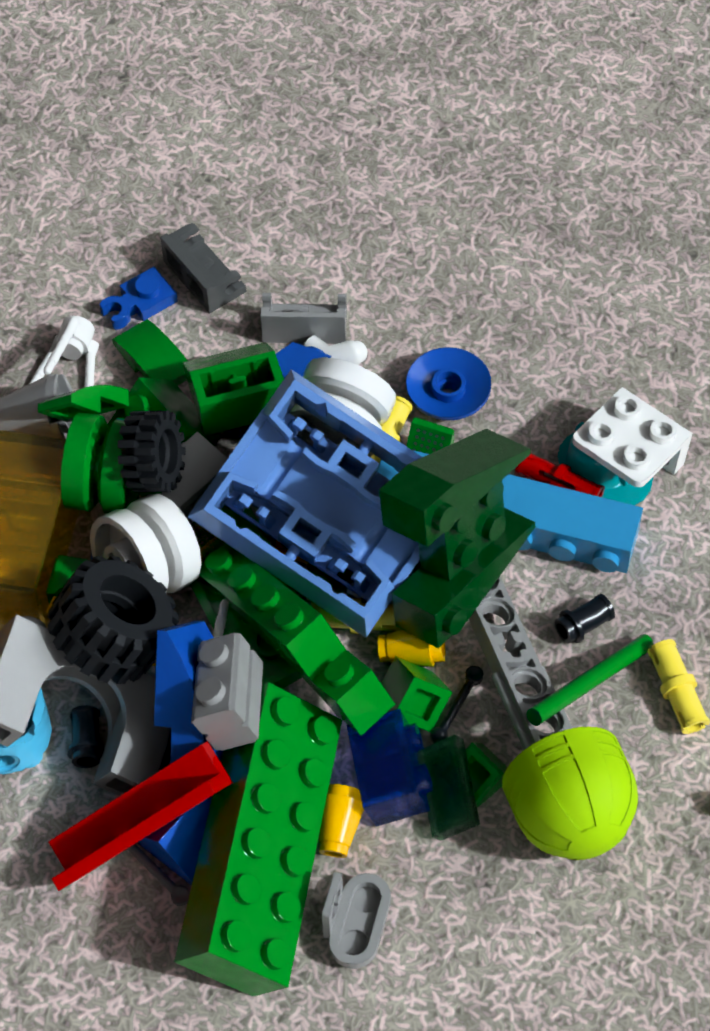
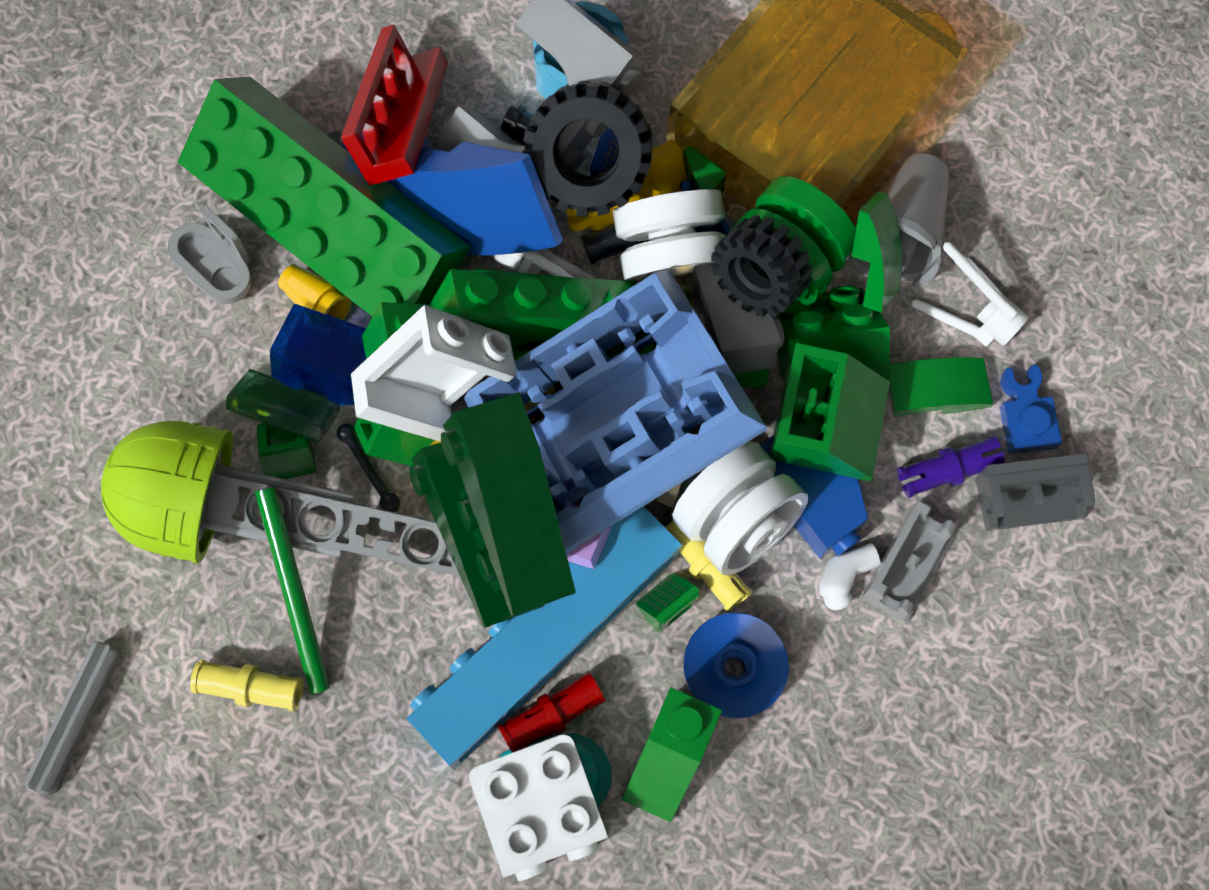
camera: 115 degrees right, 15 degrees up
(212, 321) = (949, 466): none -> dark purple pin
(227, 692) = (447, 207): light grey brick -> none
(397, 664) = (427, 369): none -> white panel
(536, 380) = (671, 754): none -> green slope
(583, 619) = (378, 639): black pin -> none

